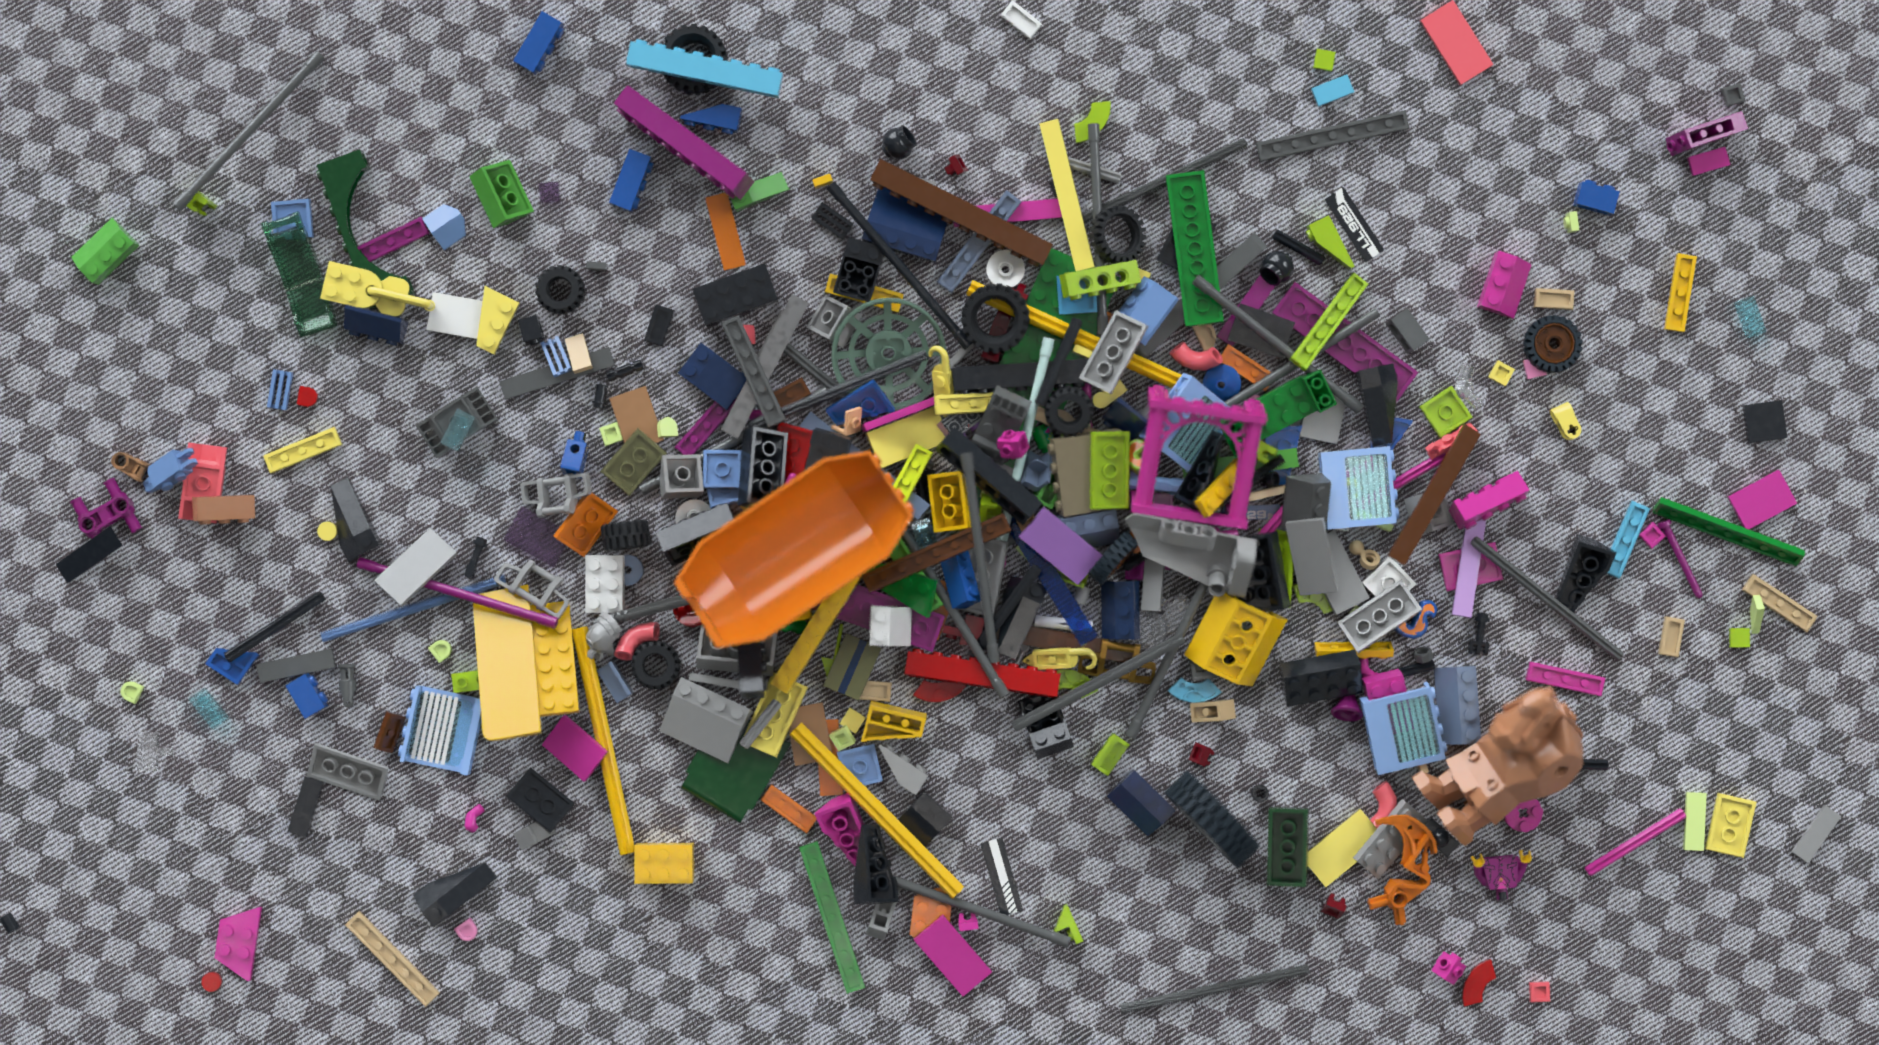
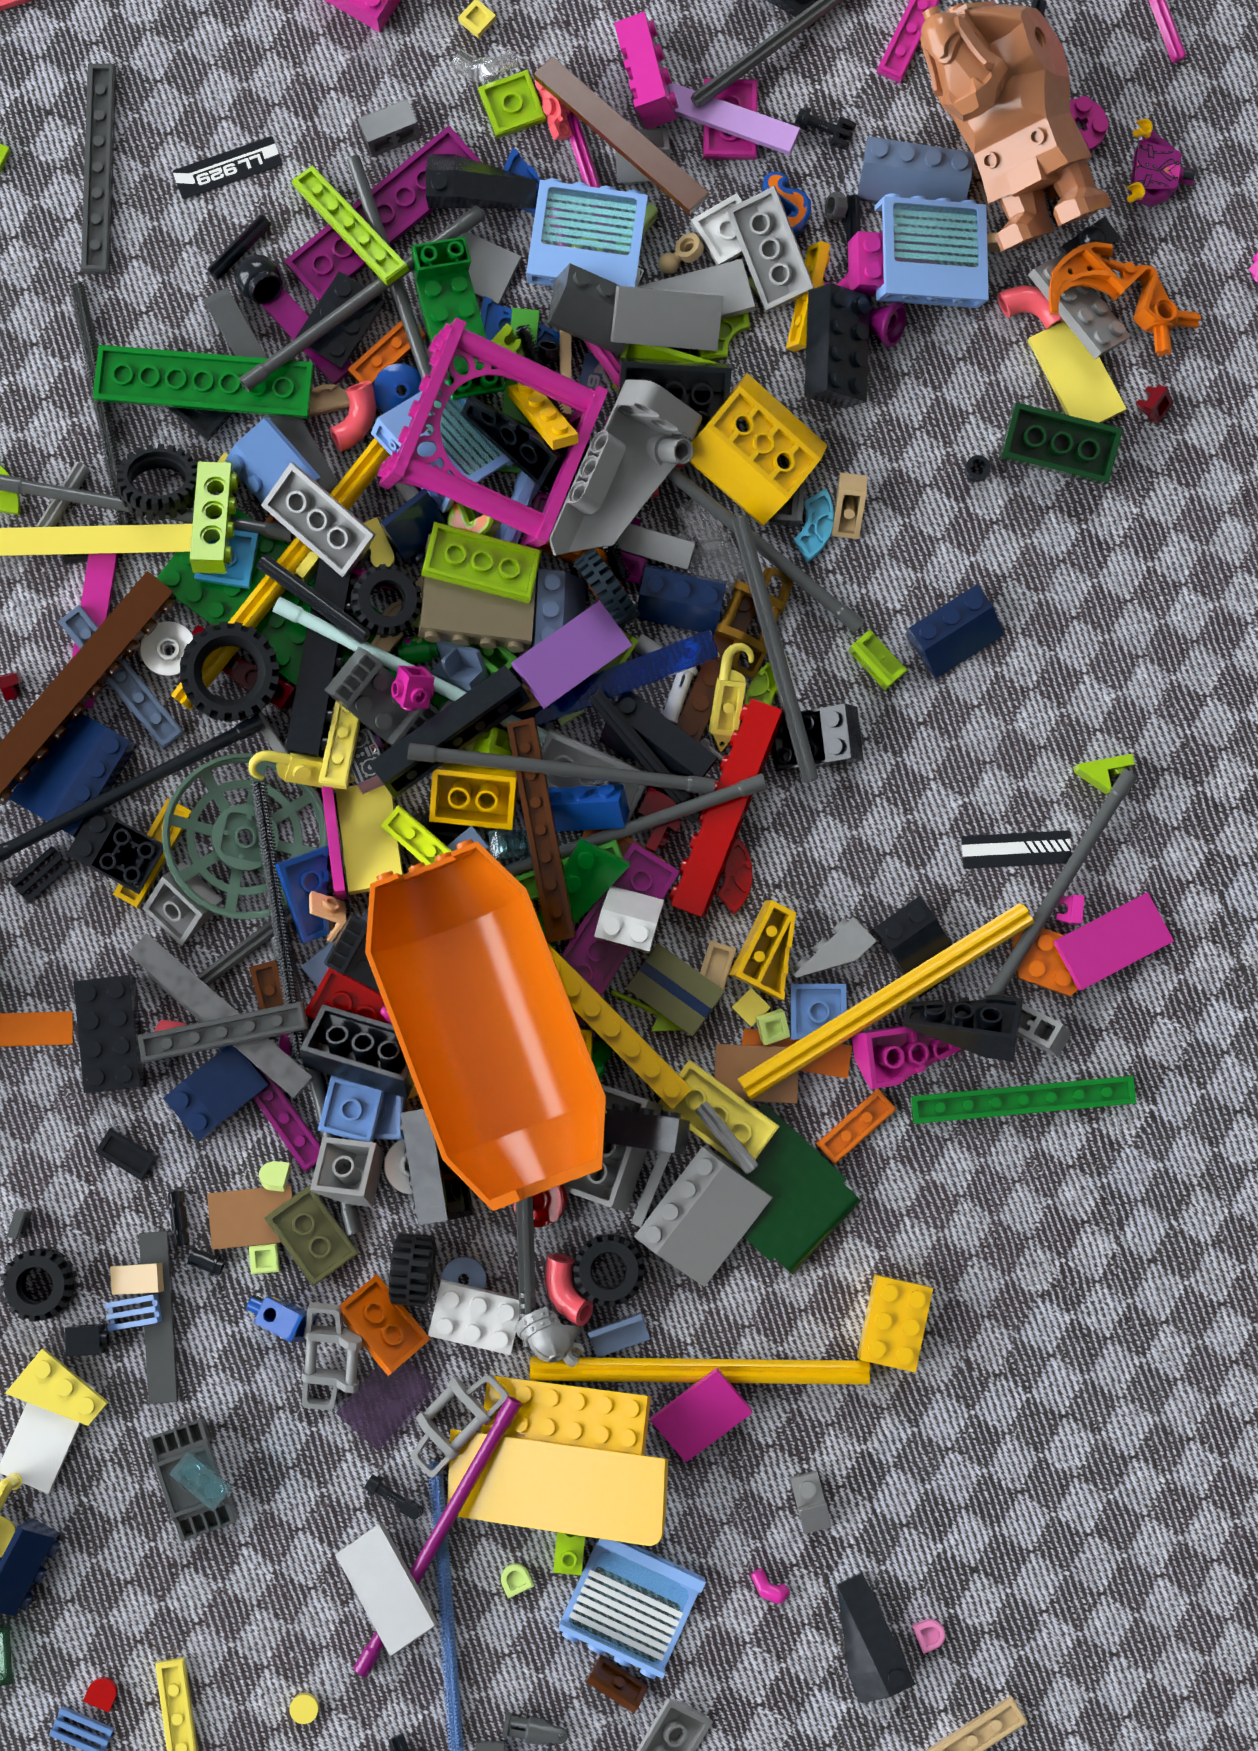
camera: 80 degrees left, 5 degrees down
(354, 526) = (309, 1667): black wedge -> none
(540, 800) = (765, 1483): black tile -> none
(1200, 754) = (905, 535): dark red tile -> none
(1212, 819) = (1002, 529): black wheel -> none
(1220, 987) = (1234, 591): dark grey axle -> none
(1327, 239) = (237, 204): lime slope -> none
(1332, 90) = (36, 154): medium azure tile -> none

